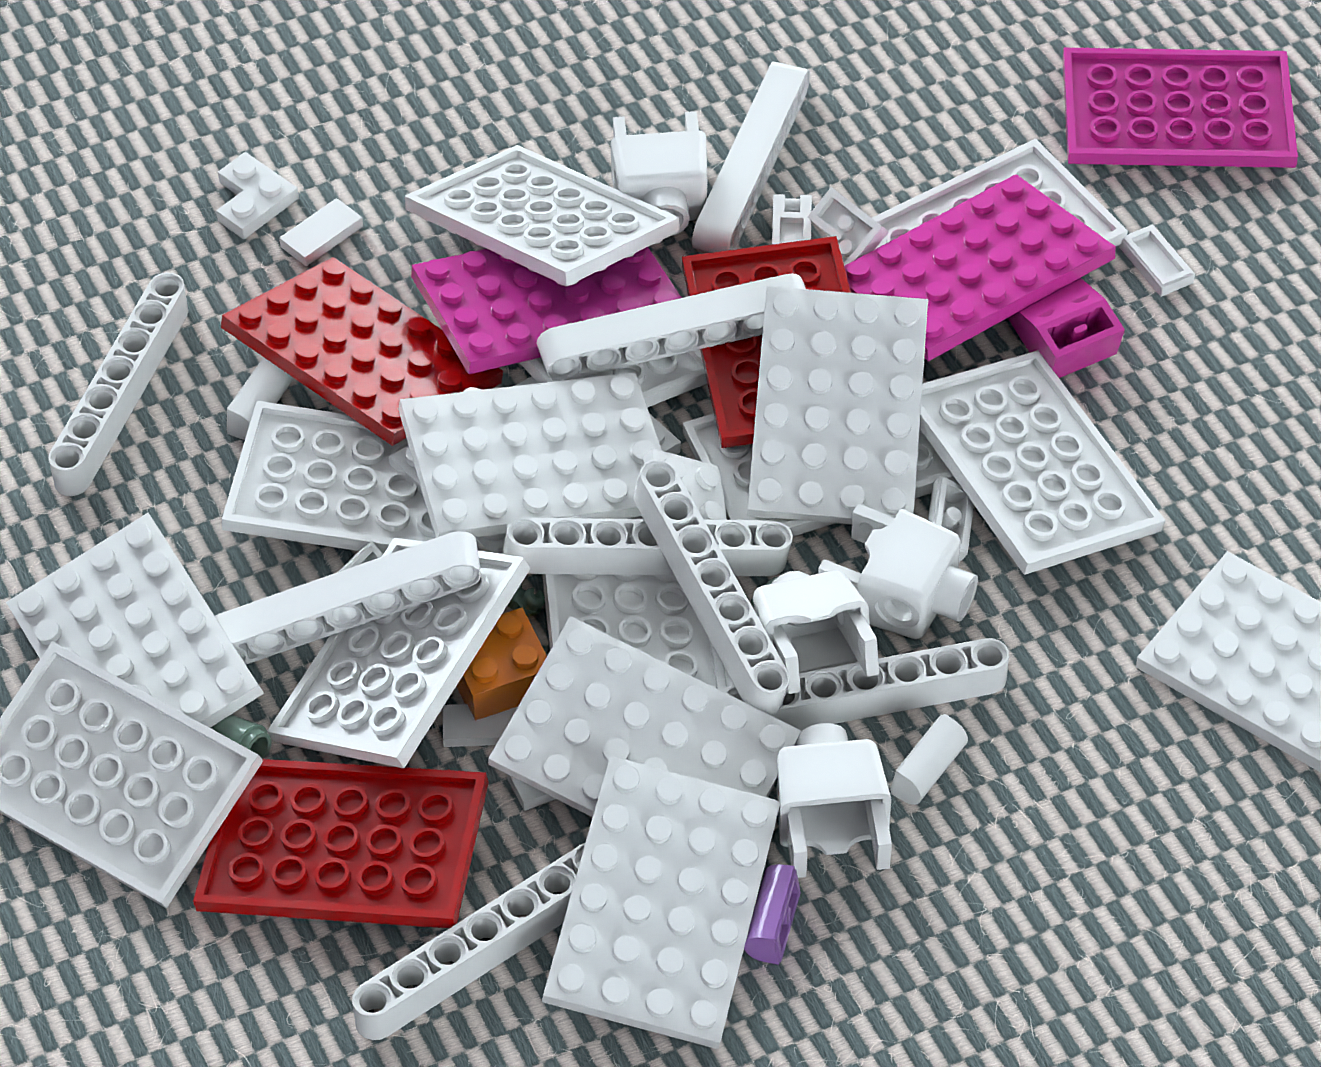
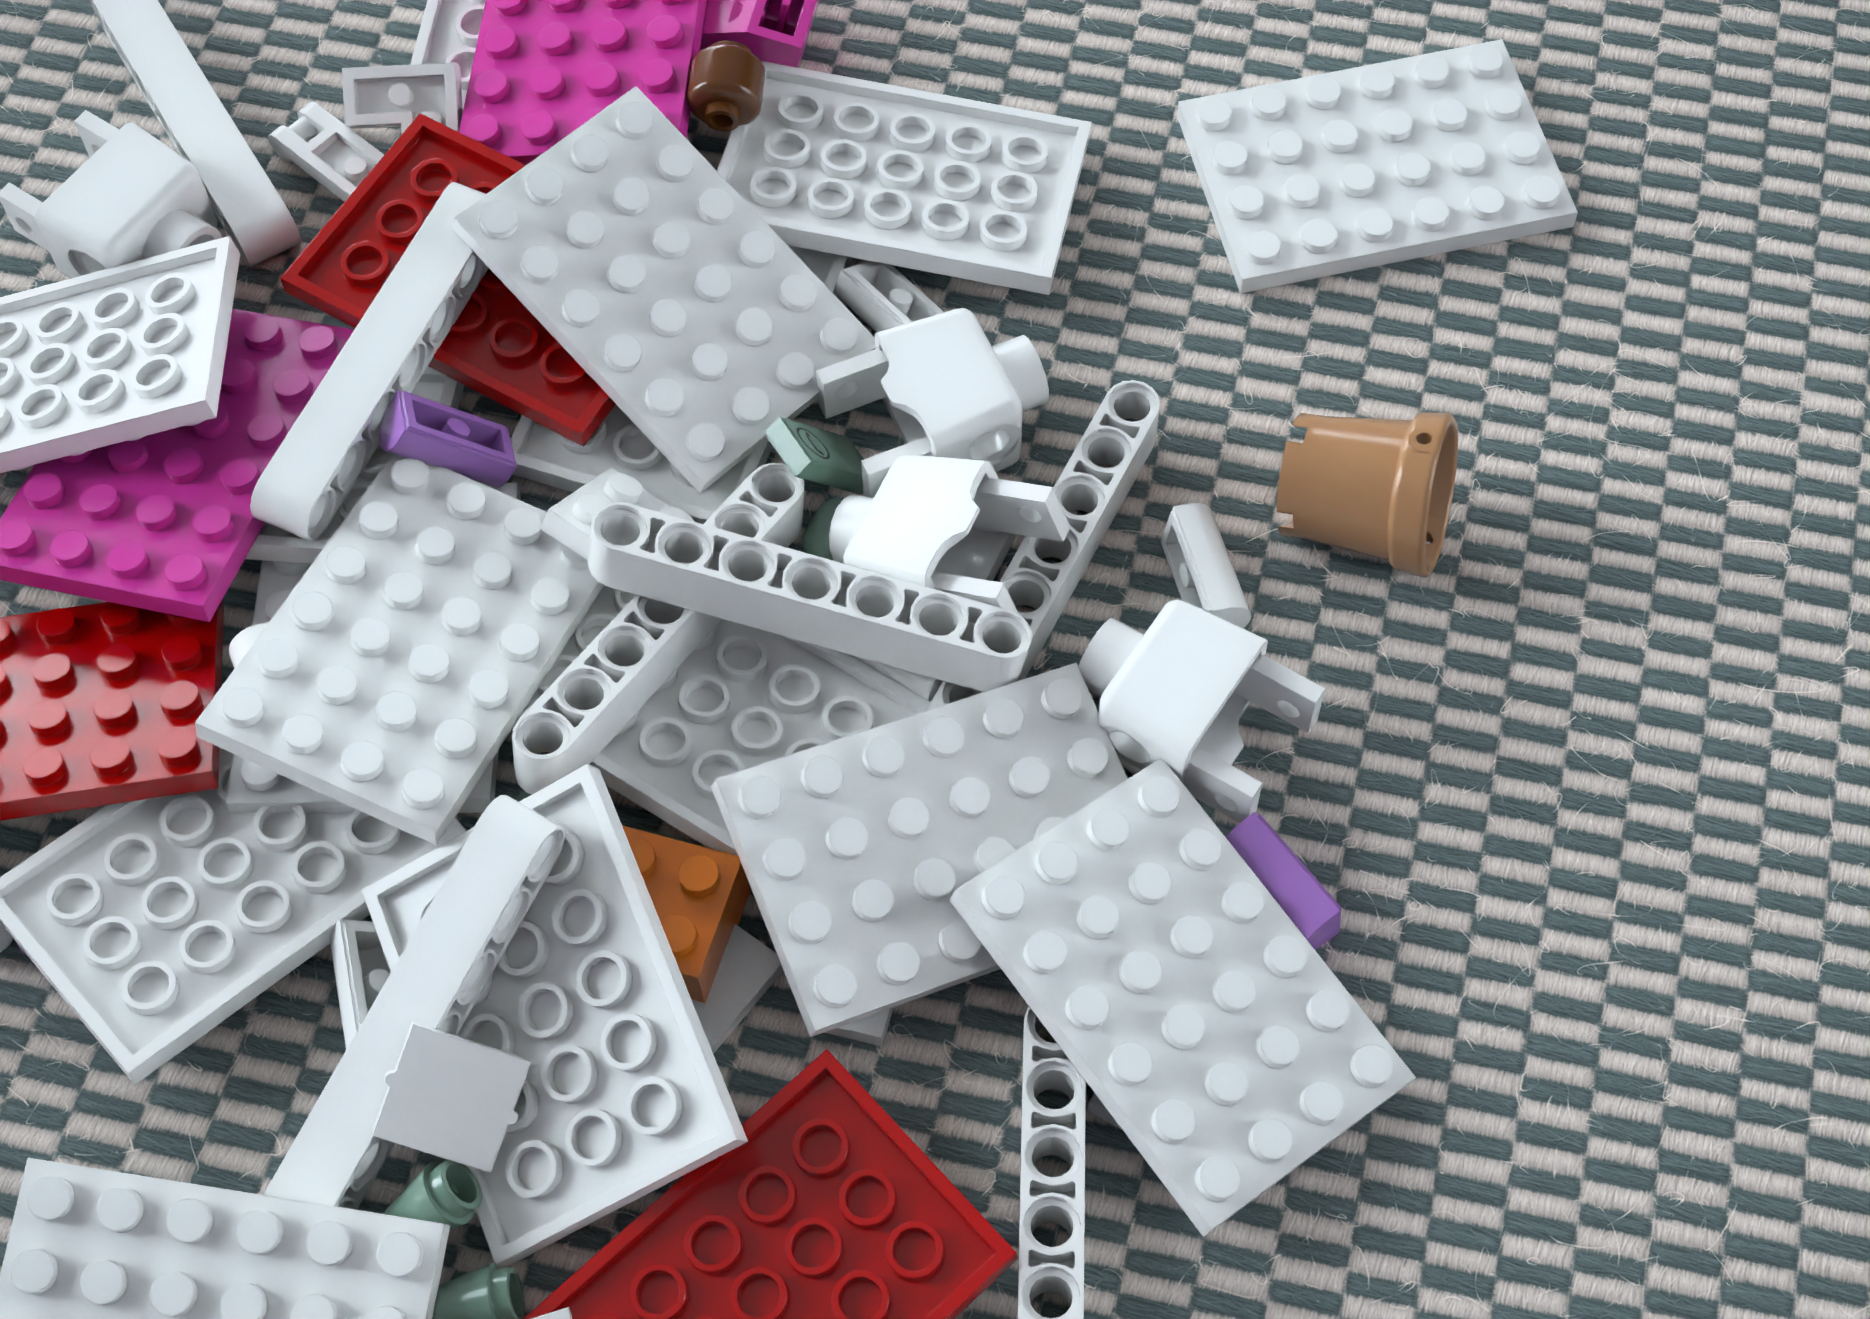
camera: 50 degrees left, 10 degrees up
(277, 682) = (440, 1194): none -> sand green cone
(320, 641) = (451, 1097): none -> white piece
(661, 388) = (447, 439): none -> medium lavender brick
(814, 540) = (817, 454): none -> sand green tile
(991, 343) = (726, 85): none -> reddish brown head
(1048, 793) = (1372, 486): none -> medium nougat piece

